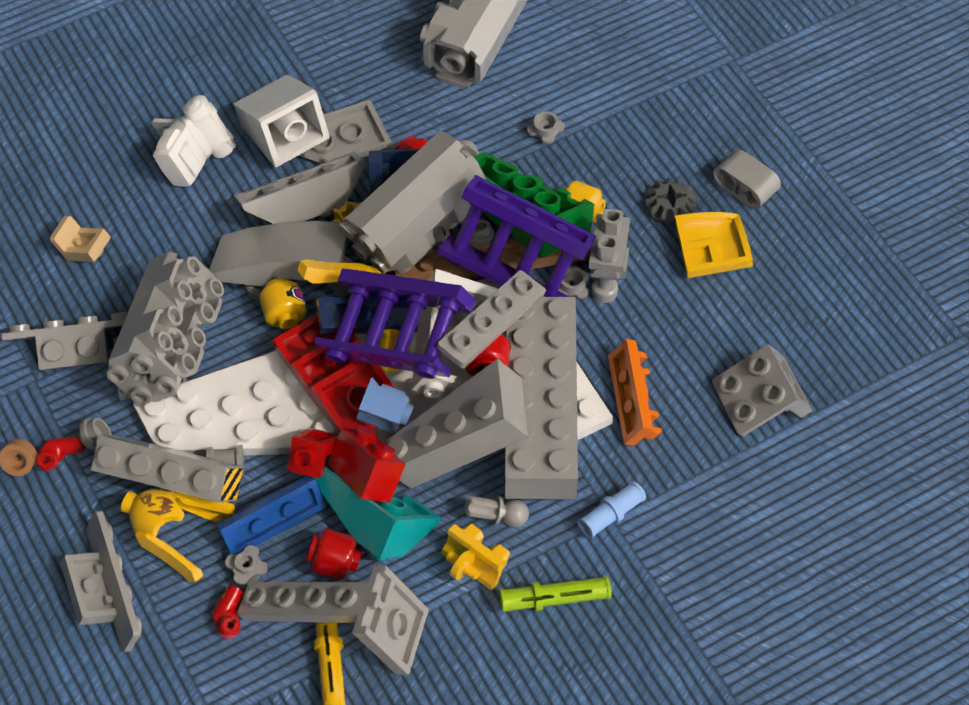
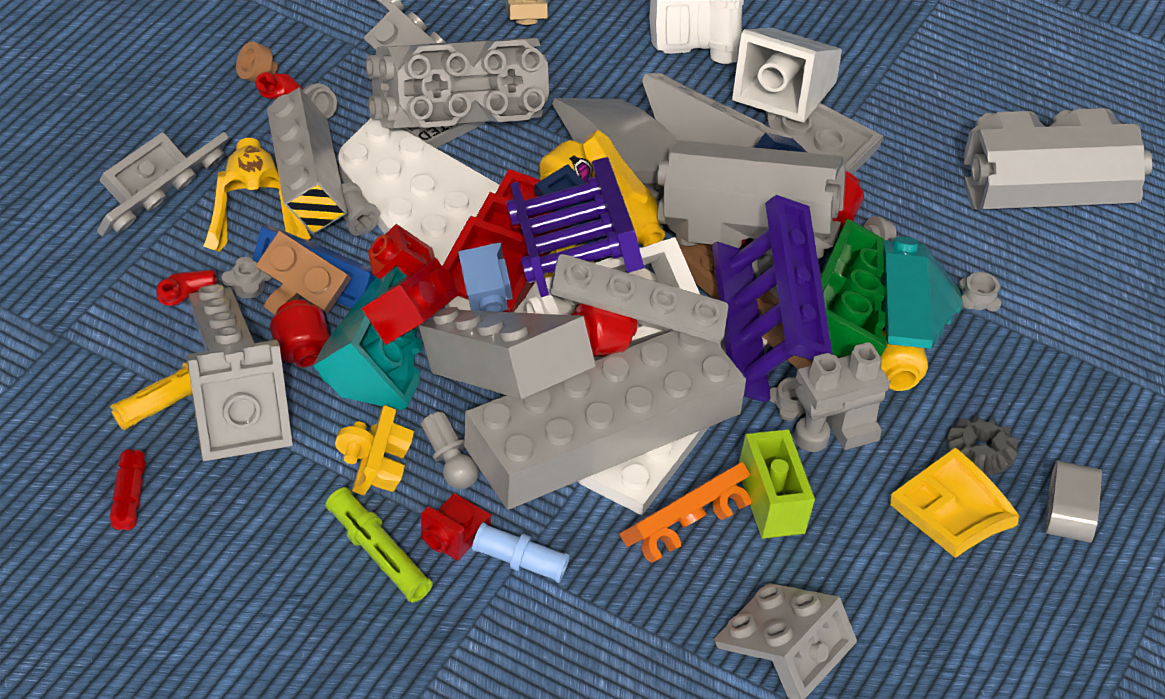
camera: 55 degrees right, 10 degrees down
(280, 527) = (301, 275): none -> medium nougat plate
(552, 163) = (917, 294): none -> teal wedge
(563, 540) = (452, 526): none -> red bracket
(654, 328) = (776, 484): none -> lime brick

